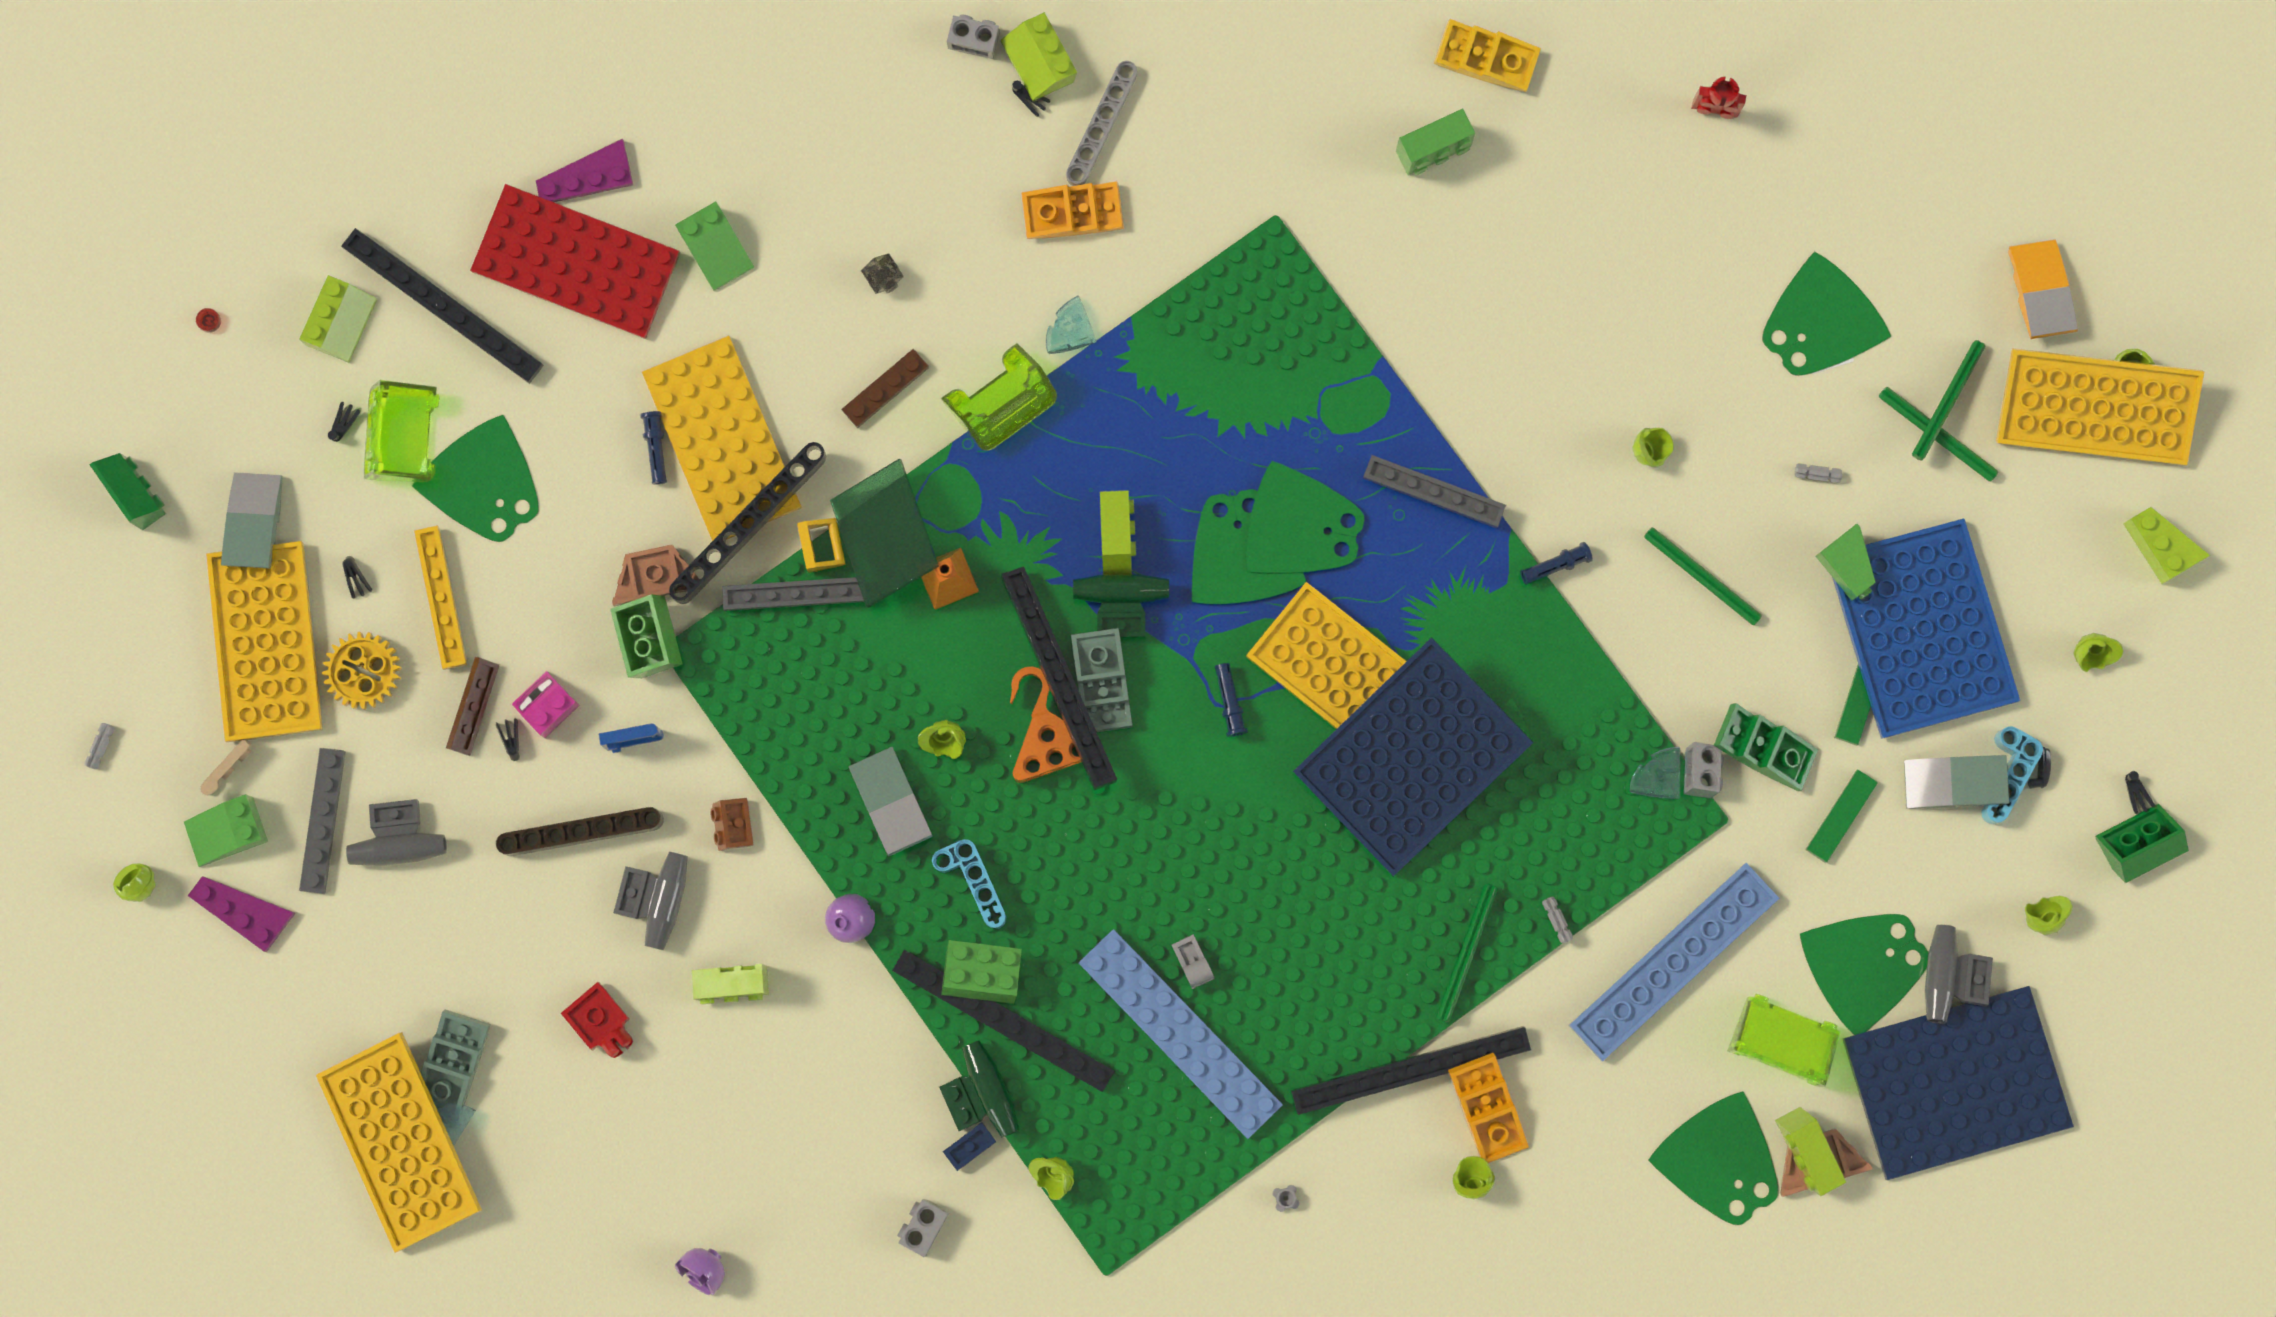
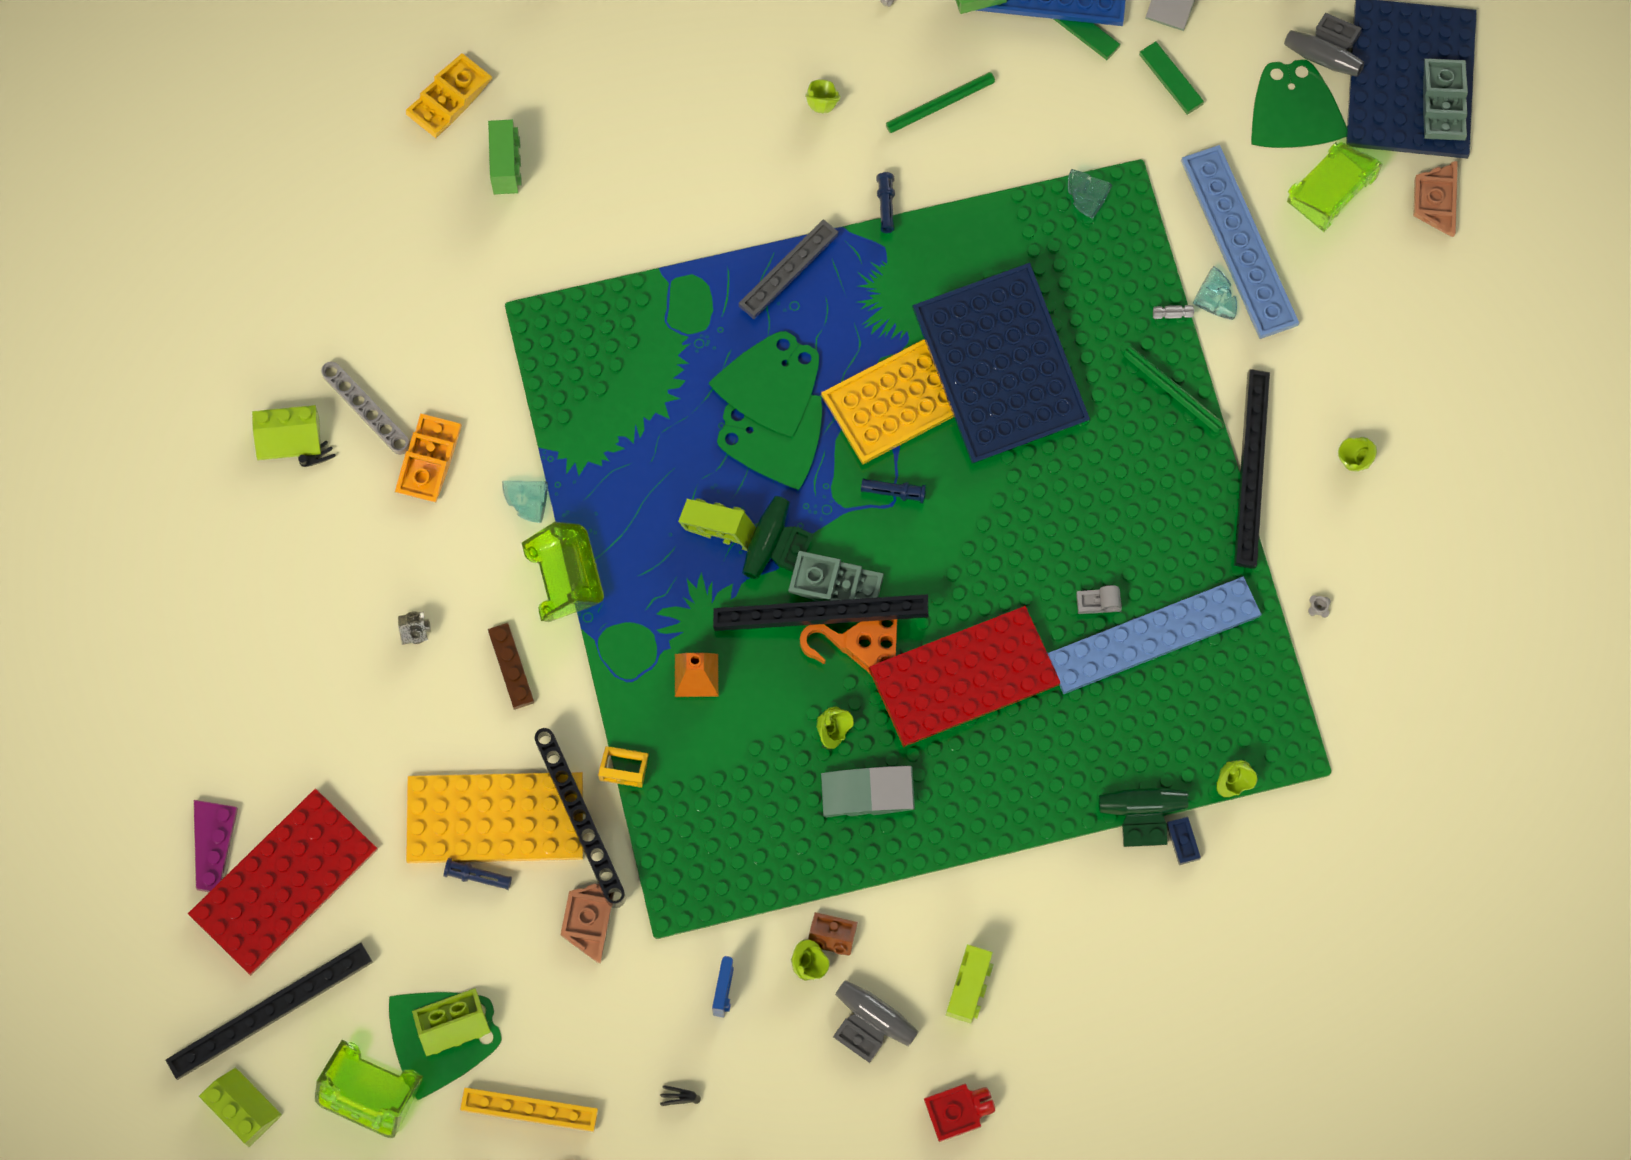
camera: 70 degrees left, 10 degrees down
(339, 429) = (339, 1144): black piece -> none
(472, 706) = (637, 1117): reddish brown plate -> none
(496, 484) = (450, 1022): none -> lime slope
(545, 704) = (661, 1053): dark pink slope -> none
(568, 828) = (792, 1055): dark brown beam -> none
(646, 636) = (641, 941): bright green brick -> none
(691, 812) = (809, 960): none -> lime piece
(702, 1269) = (1207, 1102): medium lavender cylinder -> none
(714, 245) = (324, 758): bright green slope -> none
(791, 594) = (656, 803): dark grey plate -> none
(849, 918) = (953, 864): medium lavender cylinder -> none
(884, 533) = (638, 705): clear green piece -> none
(928, 1230) = (1243, 900): light grey brick -> none
(971, 43) = (248, 481): light grey brick -> none
(975, 885) = (967, 750): medium azure beam -> none
(981, 971) = (1043, 769): bright green brick -> none
(1008, 1024) = (1088, 772): black plate -> none
(1051, 852) = (964, 676): none -> red plate
(1488, 1108) = (1304, 422): light orange slope -> none
(1599, 959) = (1215, 295): none -> clear light blue brick
(1697, 768) = (1096, 159): light grey brick -> none
(1714, 1152) = (1400, 270): green piece -> none
(1766, 747) = (1096, 107): green slope -> none
(1811, 1151) = (1428, 195): lime wedge -> none
(1940, 1129) = (1445, 99): none -> sand green slope

